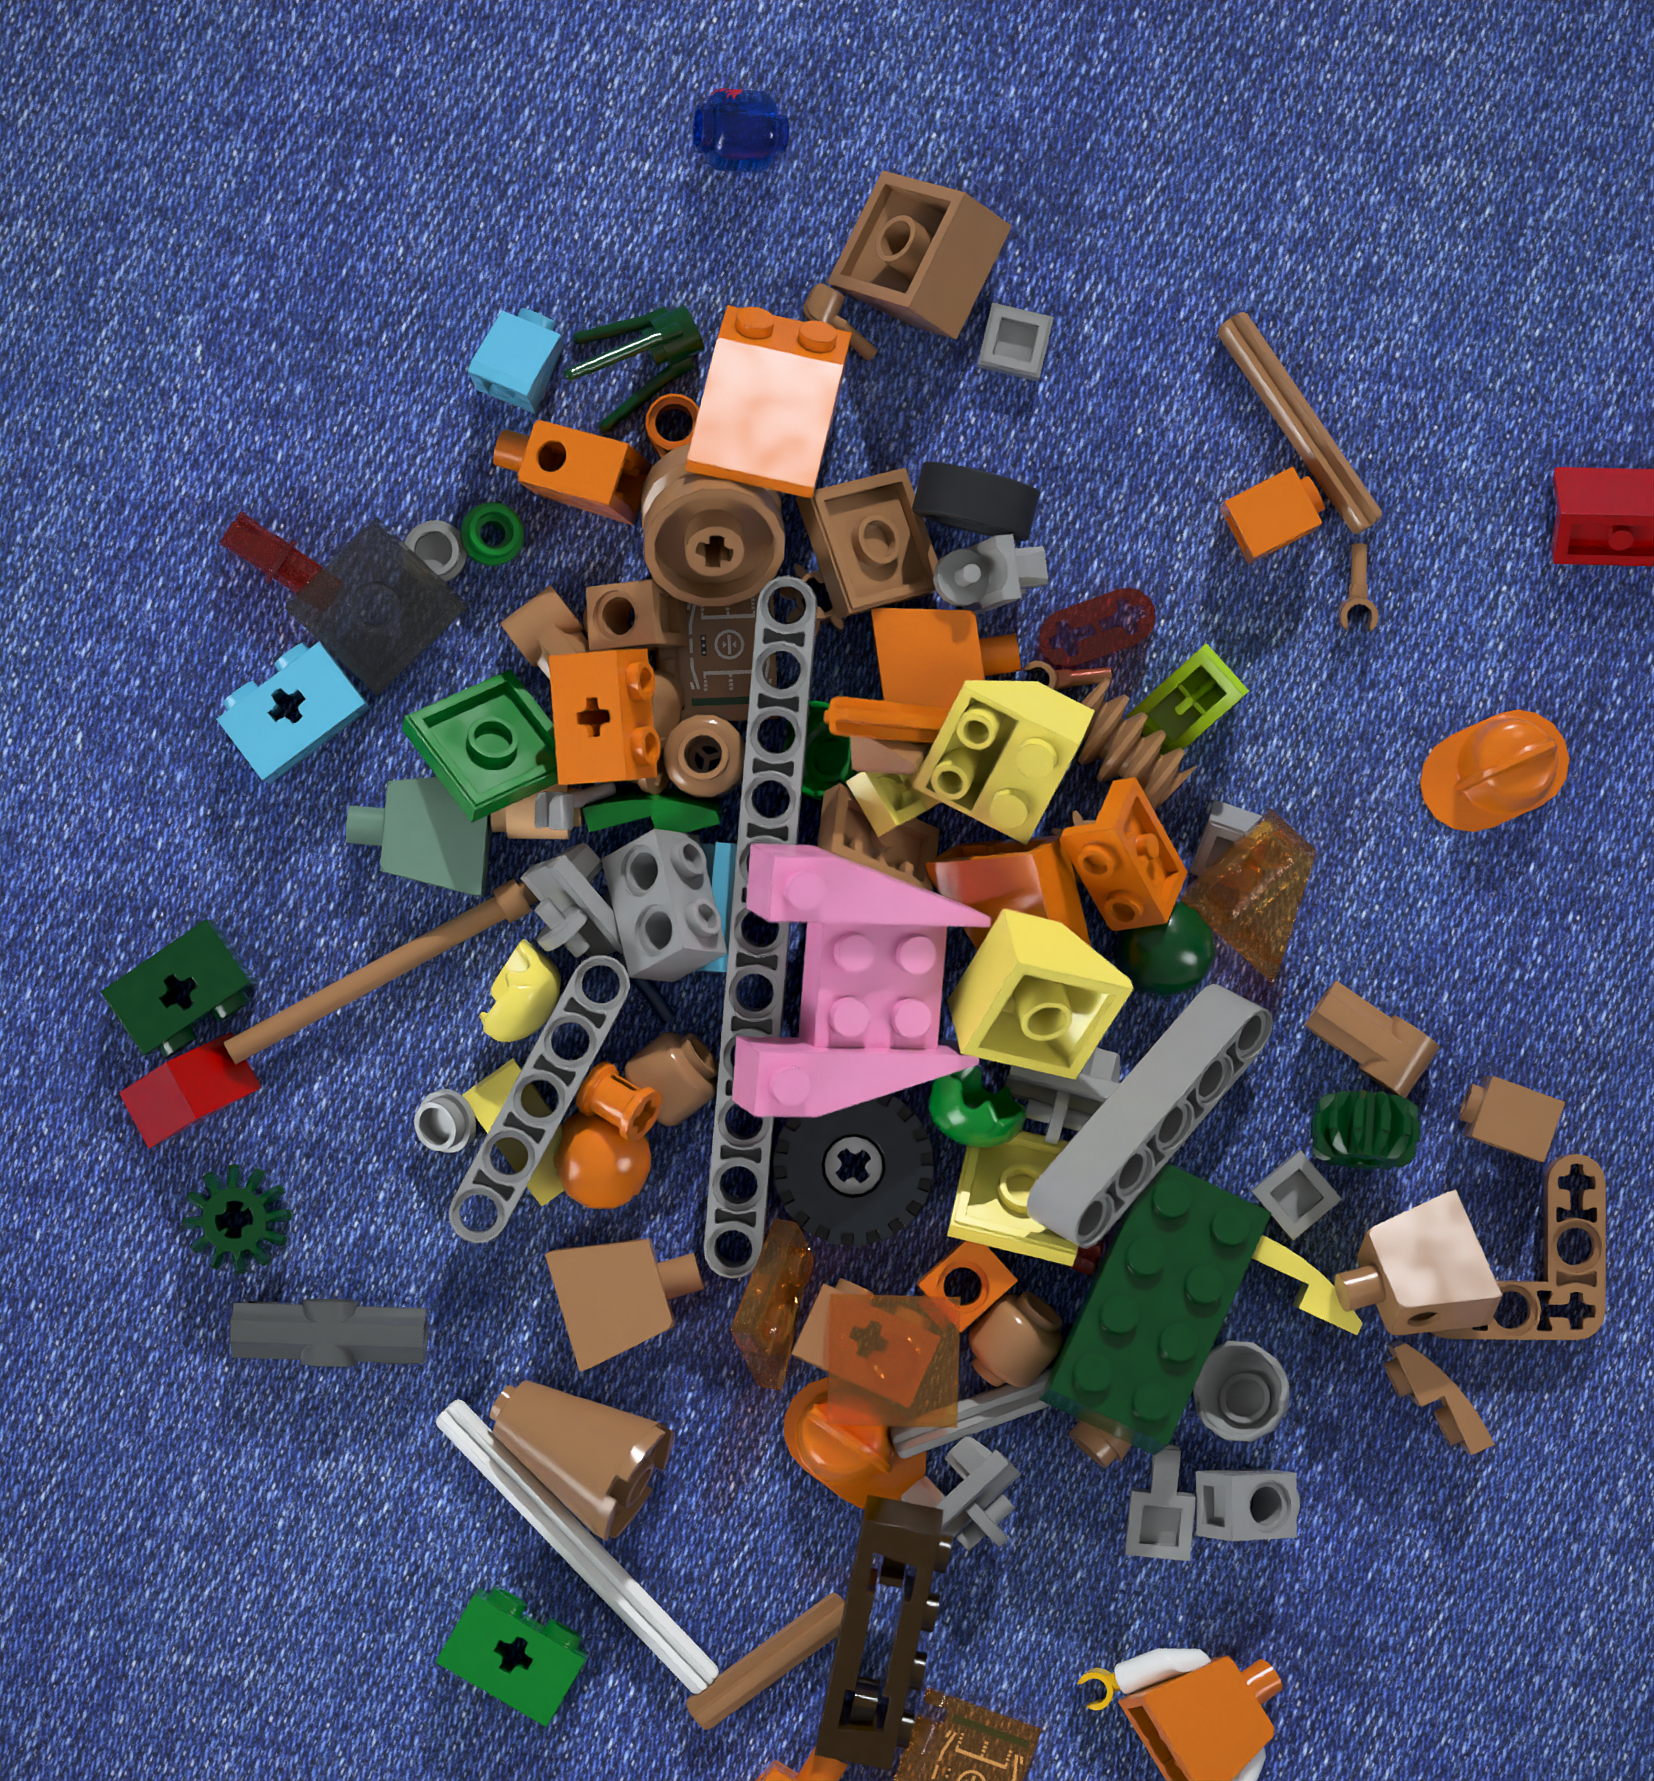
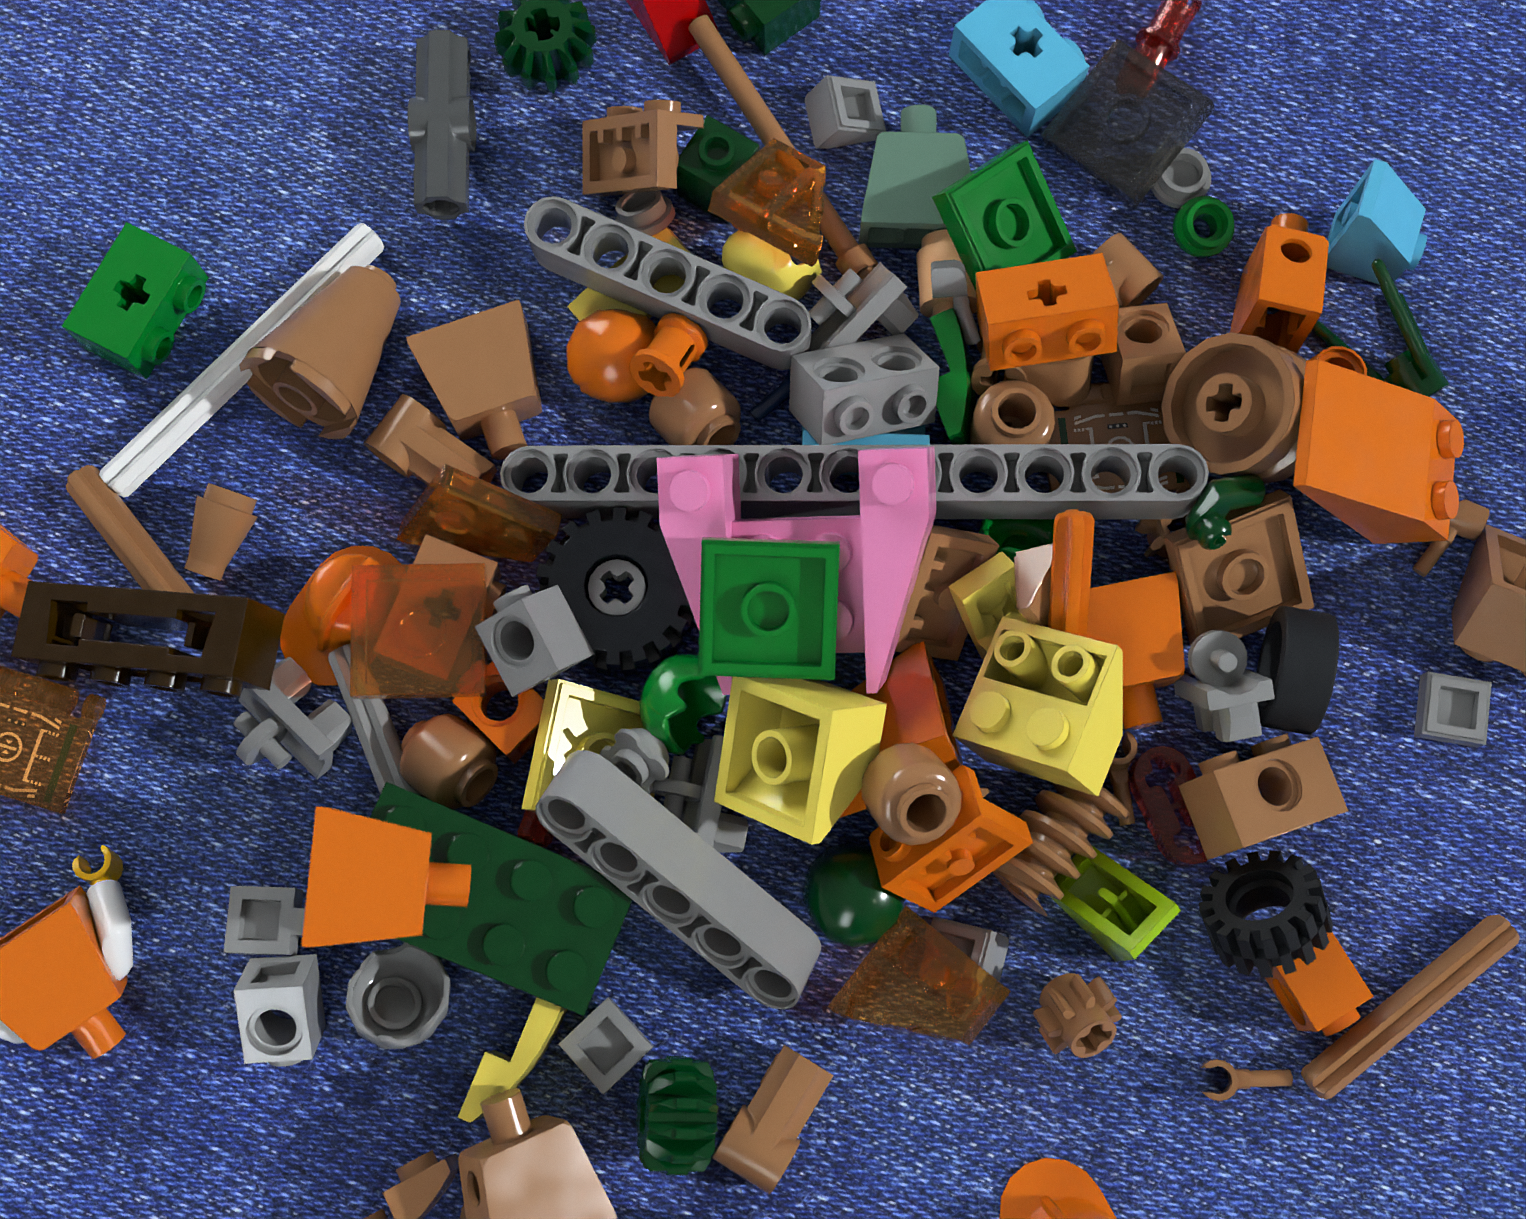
camera: 85 degrees right, 10 degrees down
(335, 901) = (844, 112): none -> light grey slope
(383, 1127) = (634, 148): none -> medium nougat bracket
(403, 1041) = (710, 160): none -> dark green brick
(459, 979) = (776, 200): none -> clear orange wing
(687, 1362) = (418, 444): none -> medium nougat piece
(760, 1569) = (218, 529): none -> medium nougat cone
(813, 568) = (1206, 517): none -> dark green arm
(905, 1015) = (768, 608): none -> green tile
(909, 1247) = (533, 658): none -> light grey brick
(1031, 1151) = (639, 756): none -> light grey plate
(1089, 891) = (911, 794): none -> medium nougat head
(1095, 511) = (1294, 789): none -> medium nougat brick
(1148, 1397) = (373, 880): none -> orange torso
(1235, 548) = (1274, 939): none -> black tyre
(1292, 744) = (1077, 1015): none -> medium nougat gear

